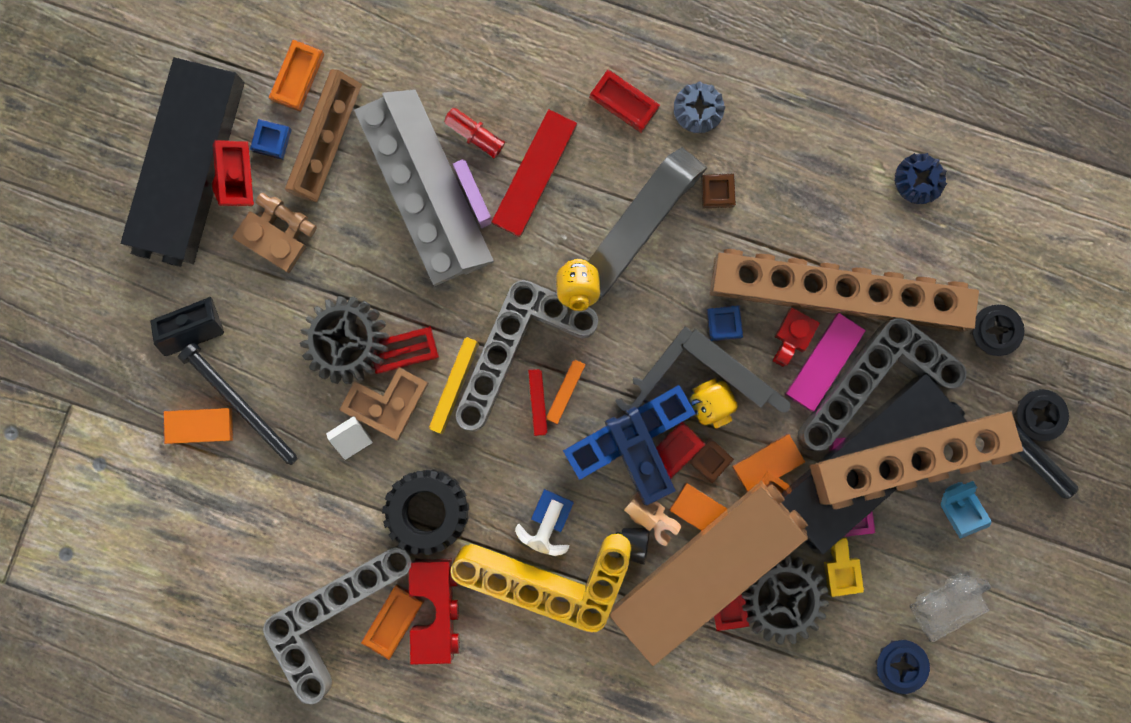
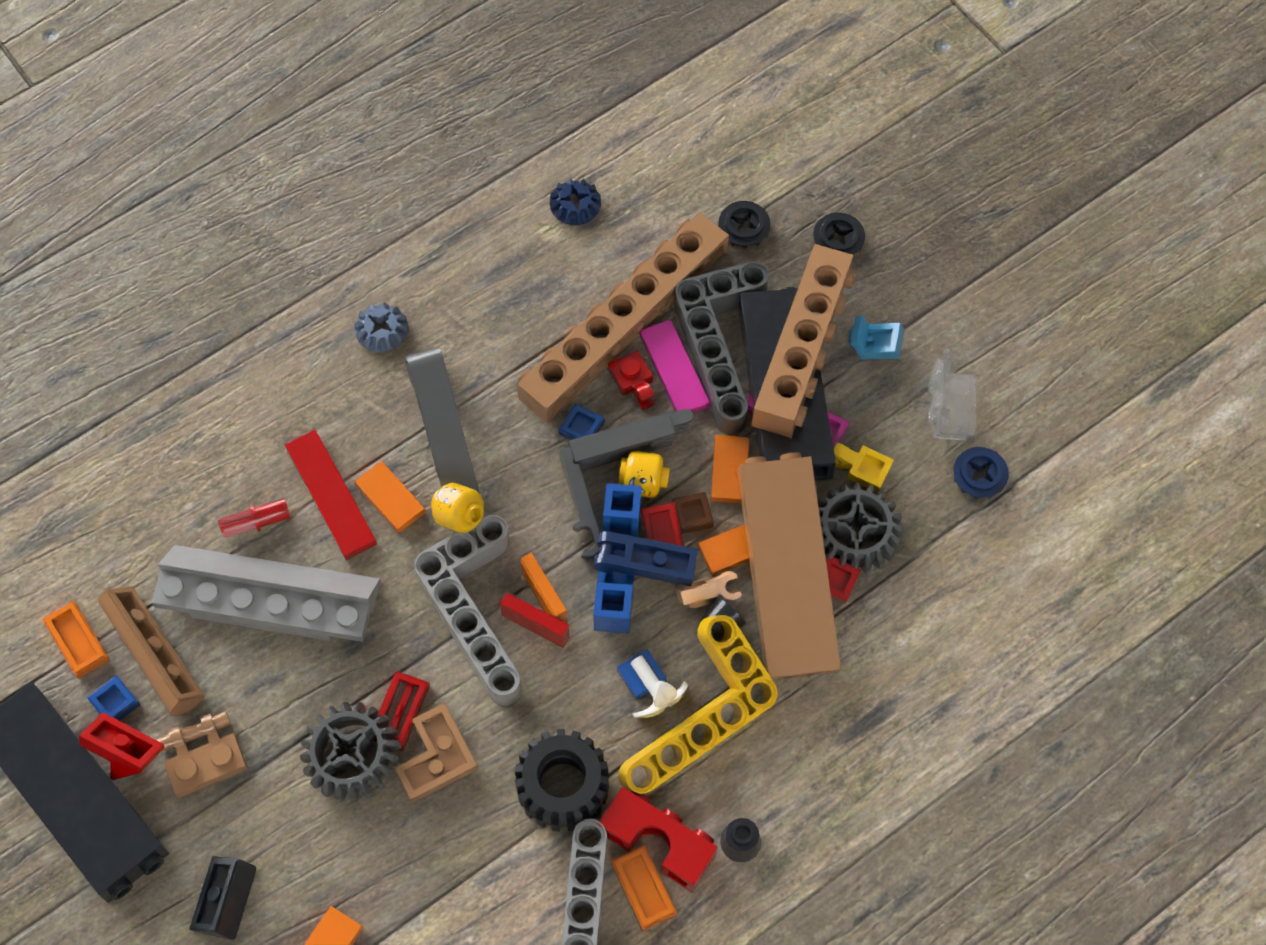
camera: 55 degrees left, 20 degrees down
(191, 355) = (330, 896): black bar -> none
(349, 438) = (443, 809): white tile -> none
(454, 385) = (465, 682): yellow tile -> none
(472, 193) = (307, 553): lavender tile -> none
(476, 669) = (740, 840): none -> black hat
(563, 219) = (389, 497): none -> orange tile
(624, 101) = (327, 381): red tile -> none
(718, 191) = (464, 358): reddish brown tile -> none
(1046, 467) = (887, 260): black axle -> none

